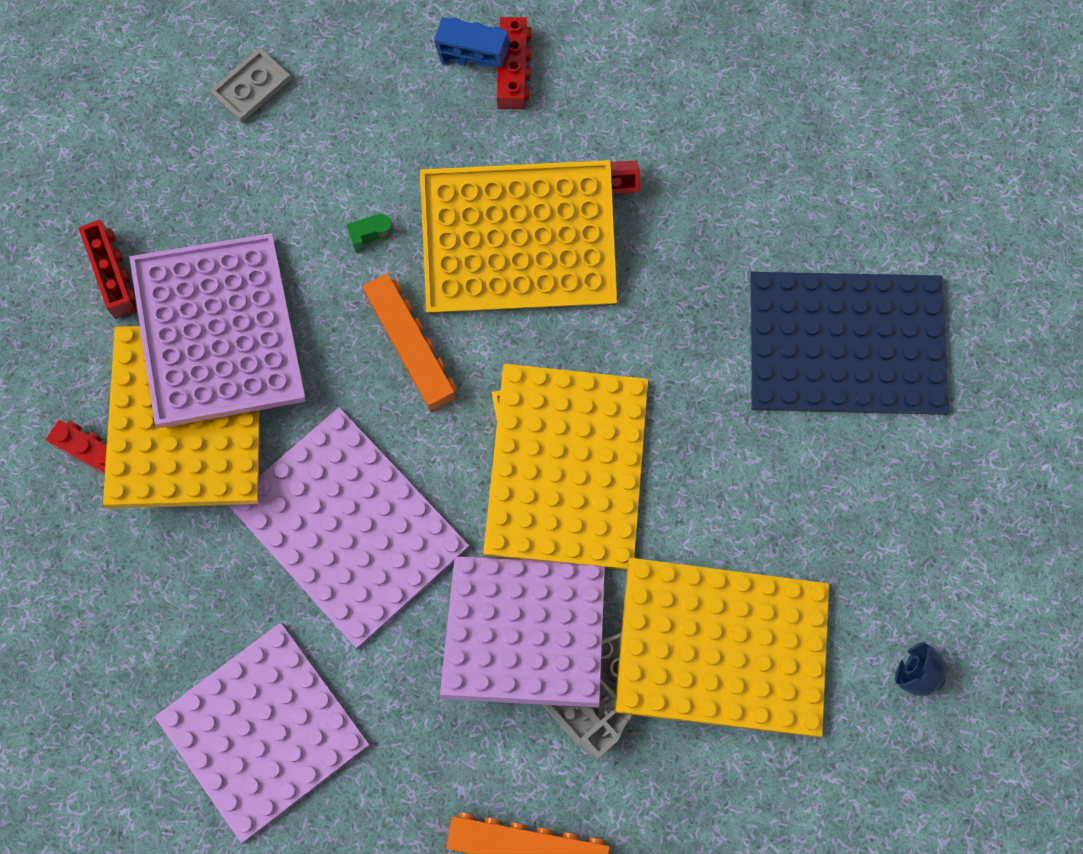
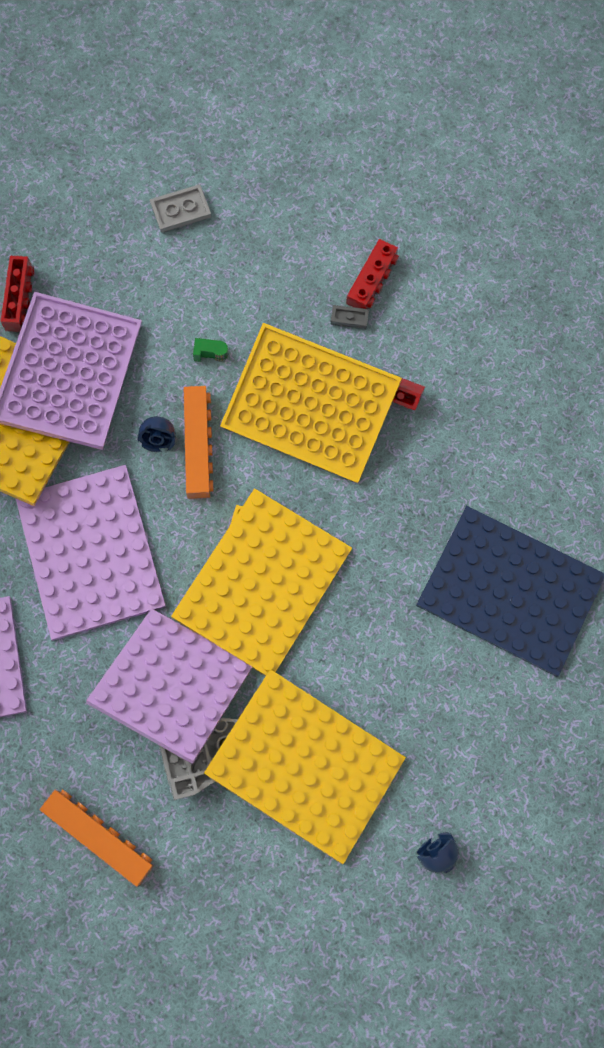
camera: 20 degrees right, 0 degrees up
(358, 353) = (157, 433): none -> dark blue cylinder
(471, 42) = (348, 248): blue wedge -> none
(510, 121) = (349, 316): none -> dark grey plate

